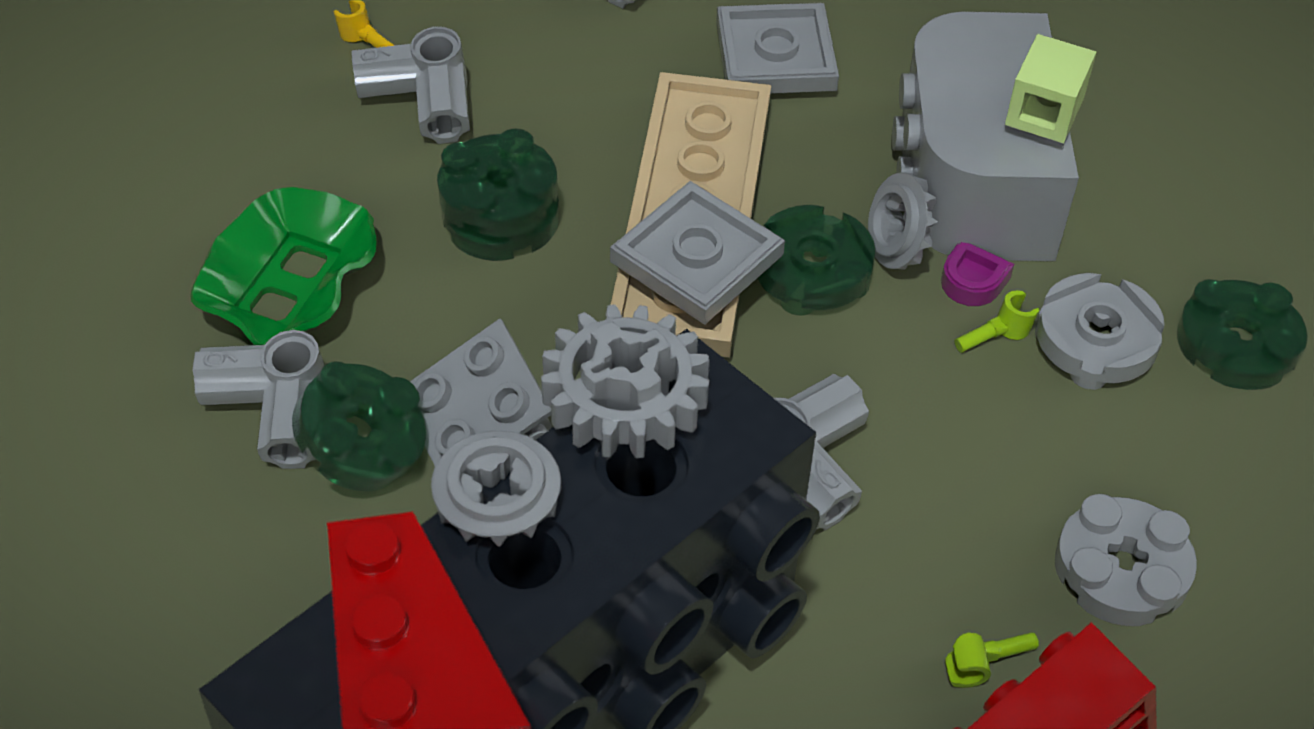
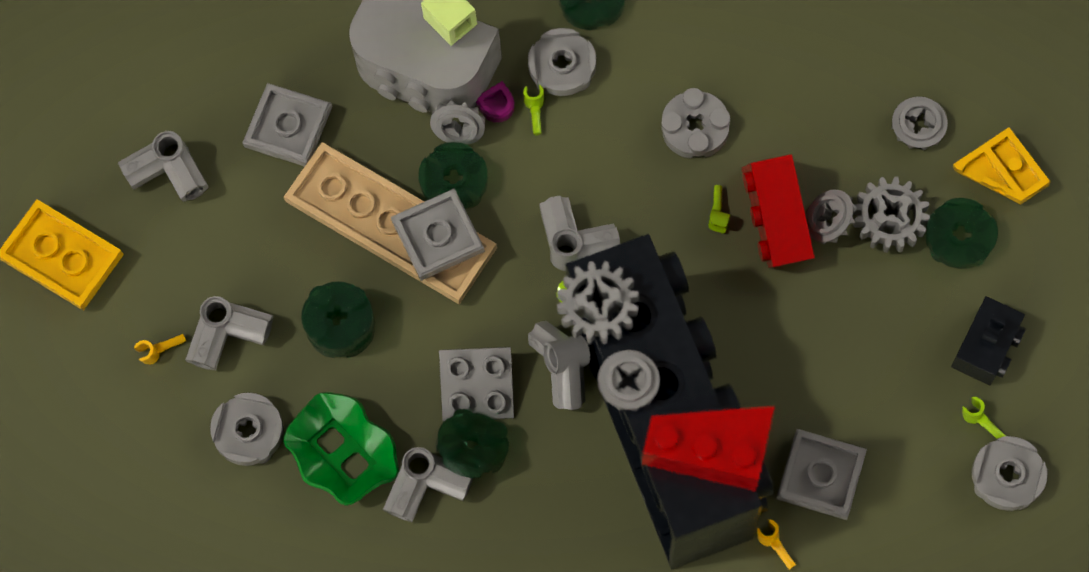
camera: 60 degrees left, 20 degrees up
(247, 153) = (235, 413): none -> light grey plate

